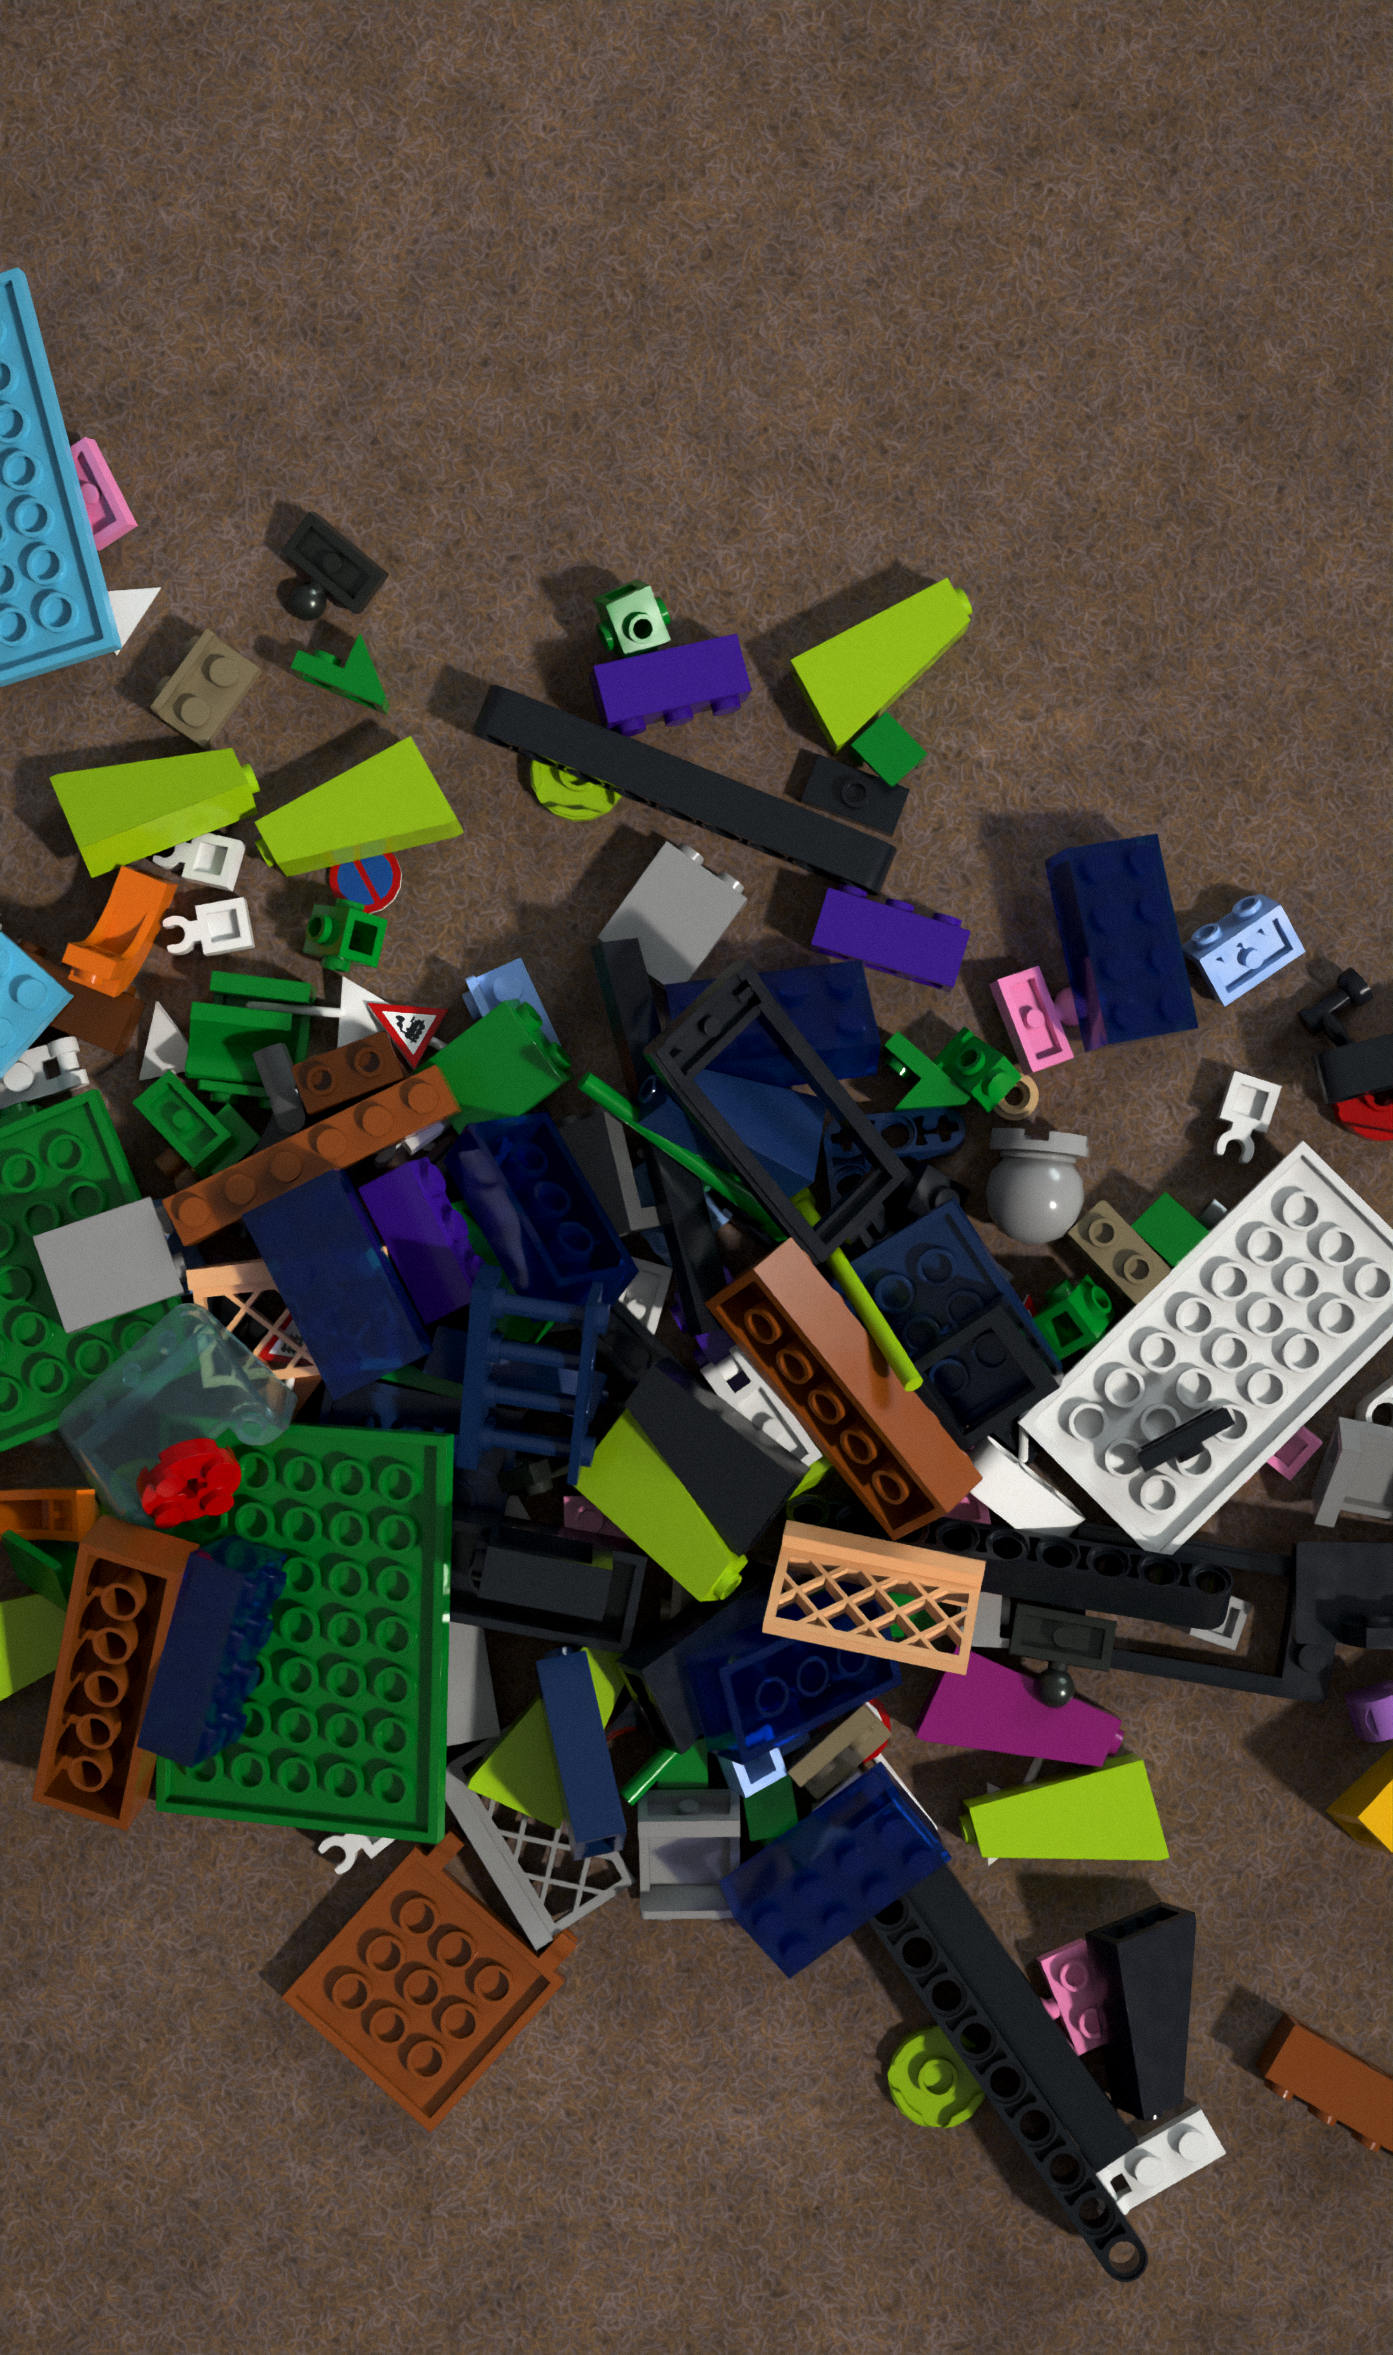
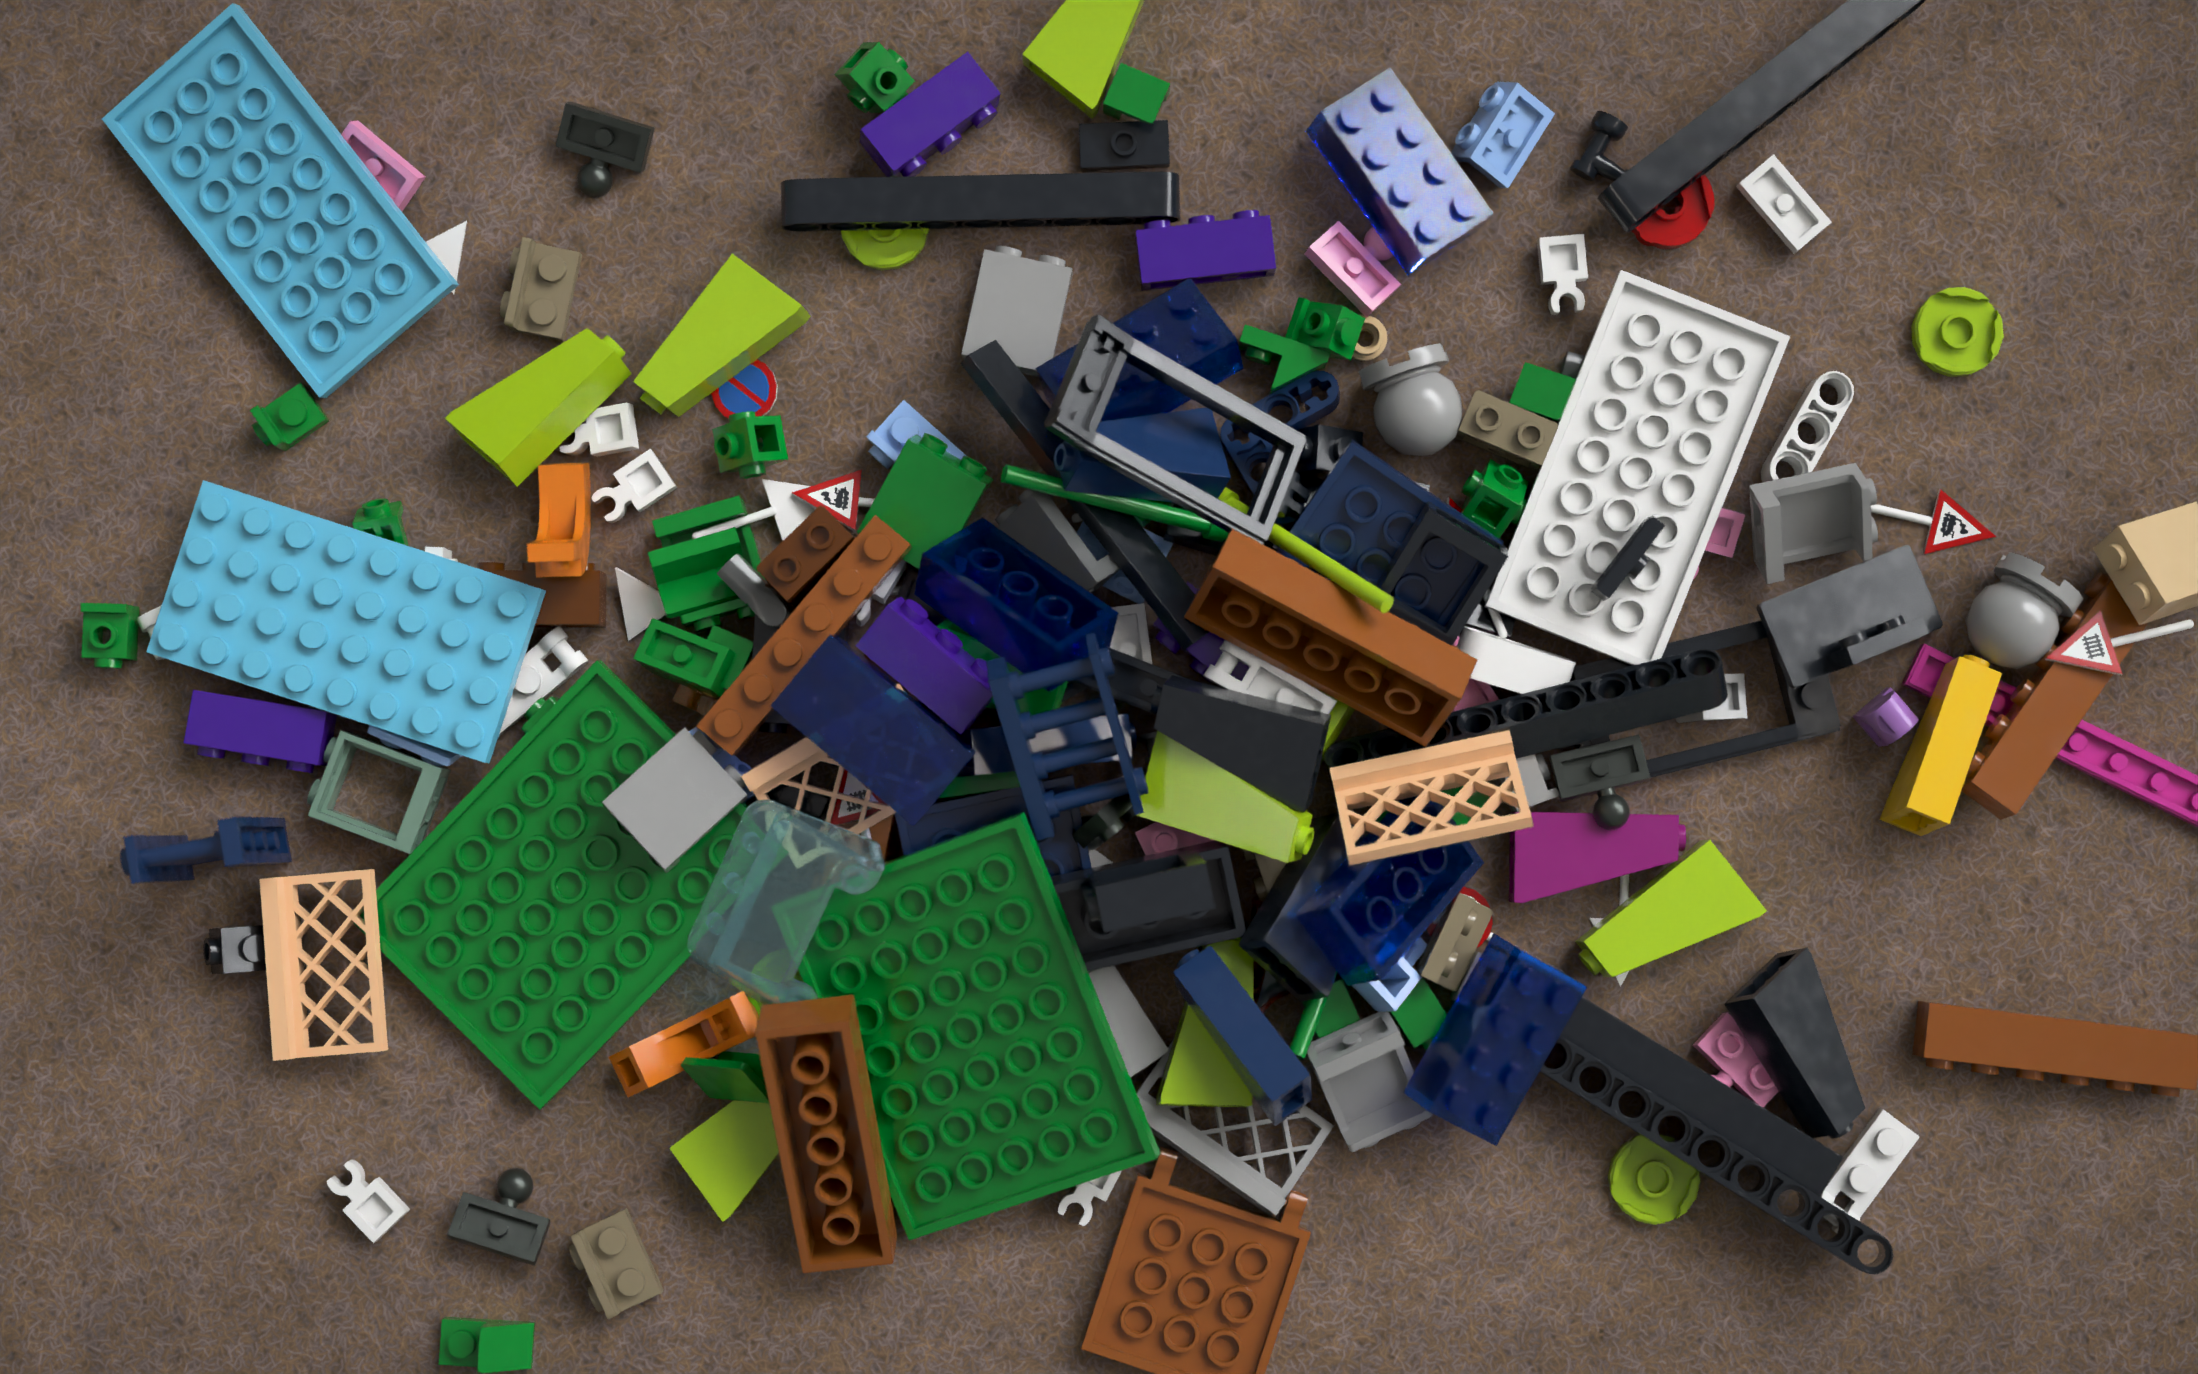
camera: 20 degrees left, 0 degrees up
(172, 1499) = (816, 967): red plate -> none
(212, 1650) = (901, 1078): clear blue brick -> none
(355, 681) = (666, 229): green slope -> none

